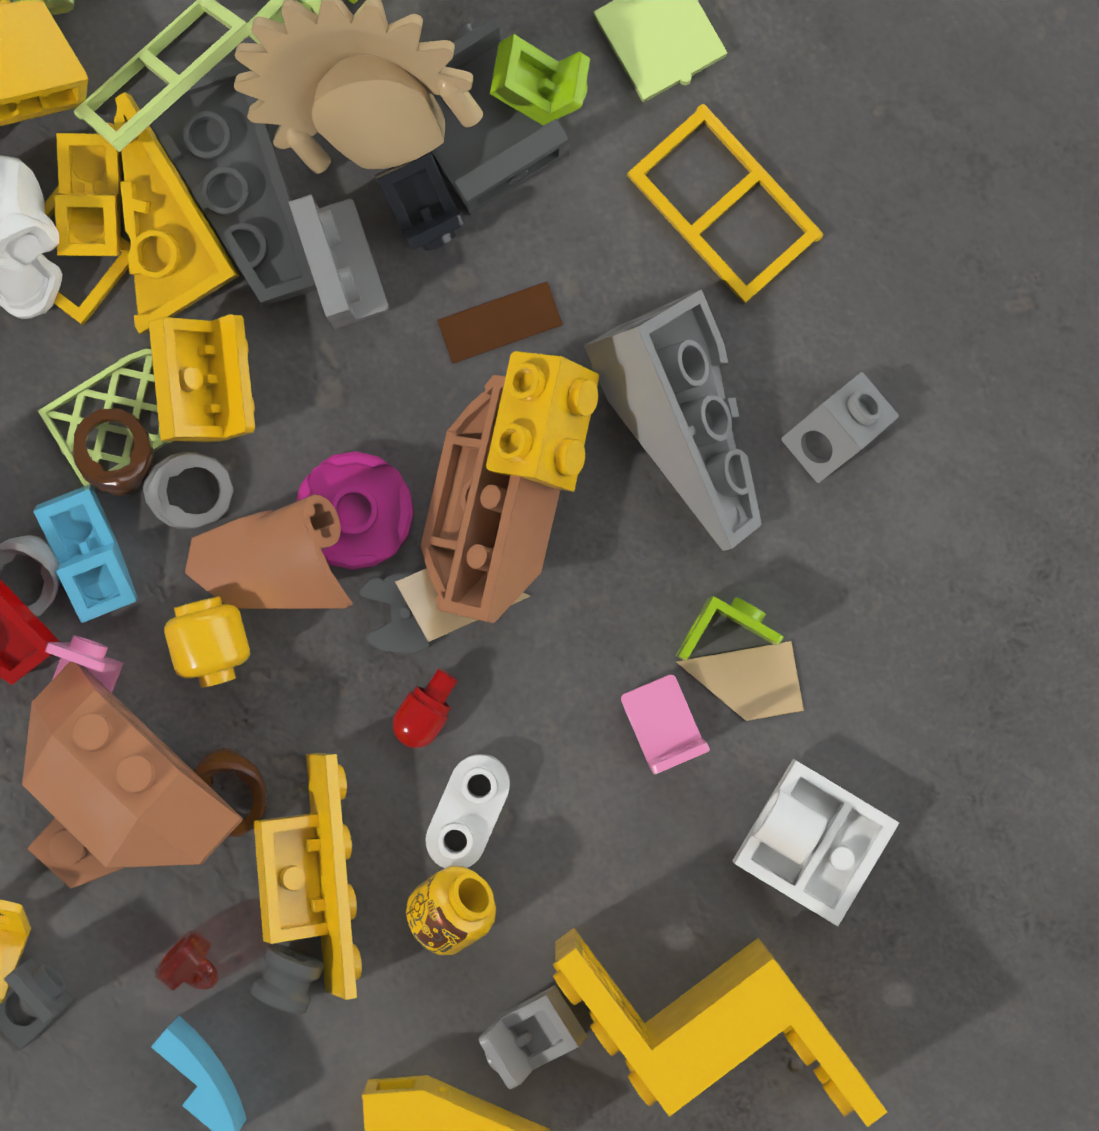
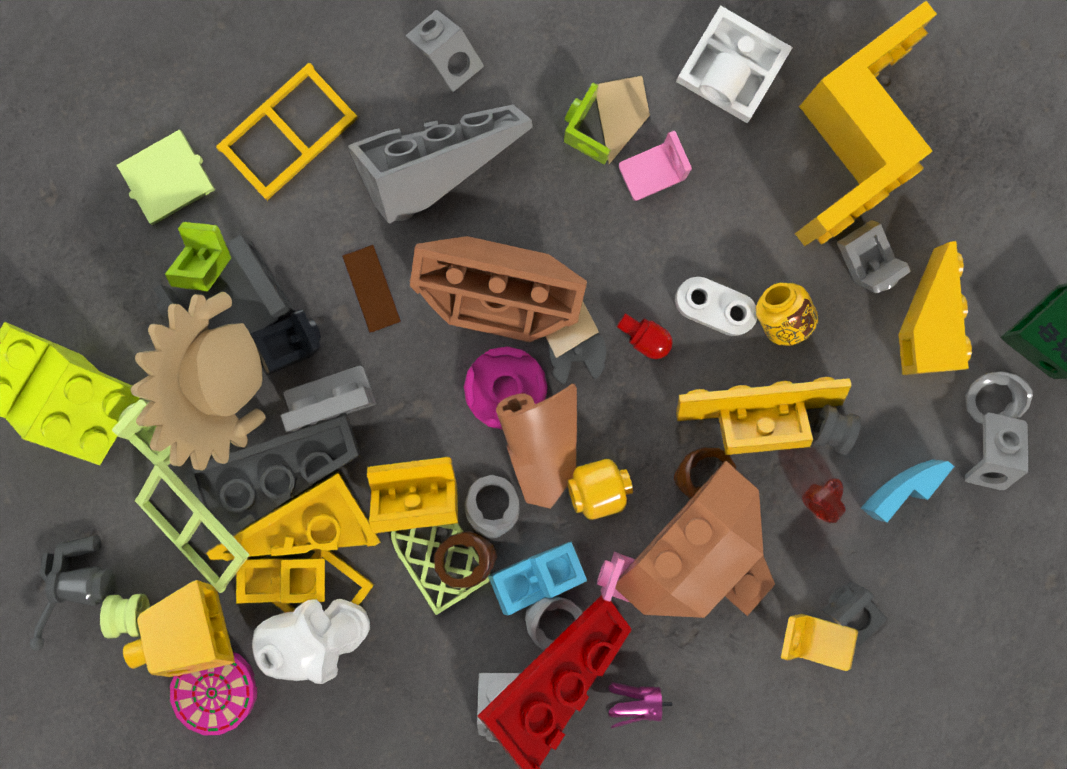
camera: 90 degrees left, 0 degrees up
(543, 420) = (441, 248): yellow bracket -> none

